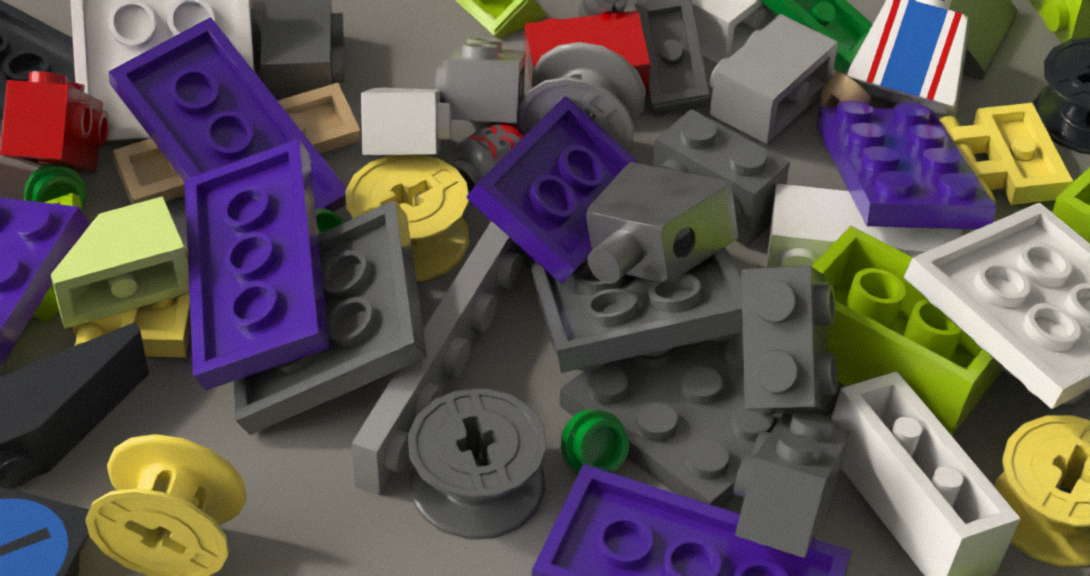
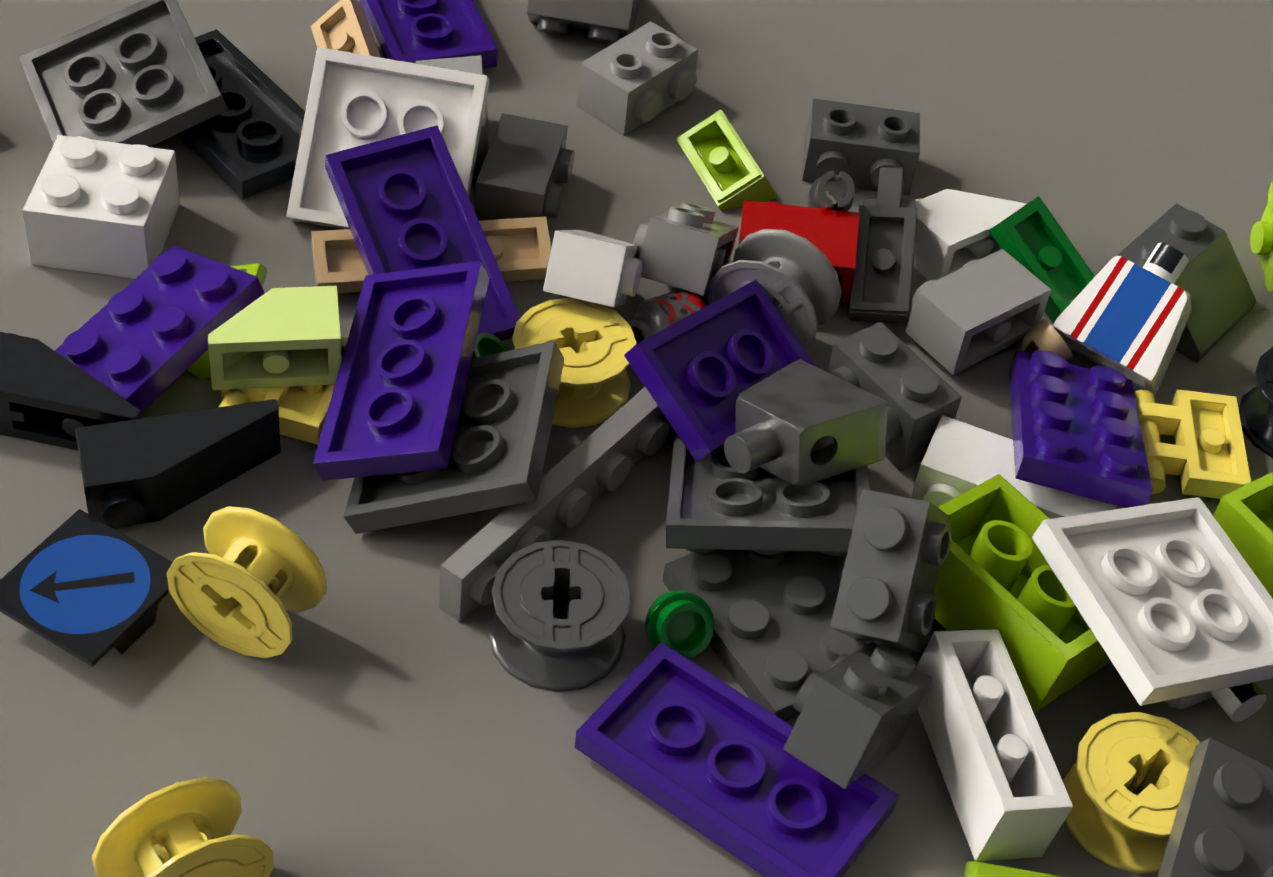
camera: 10 degrees right, 0 degrees up
(53, 123) = (261, 193): red brick -> none
(53, 182) = (249, 248): green plate -> none

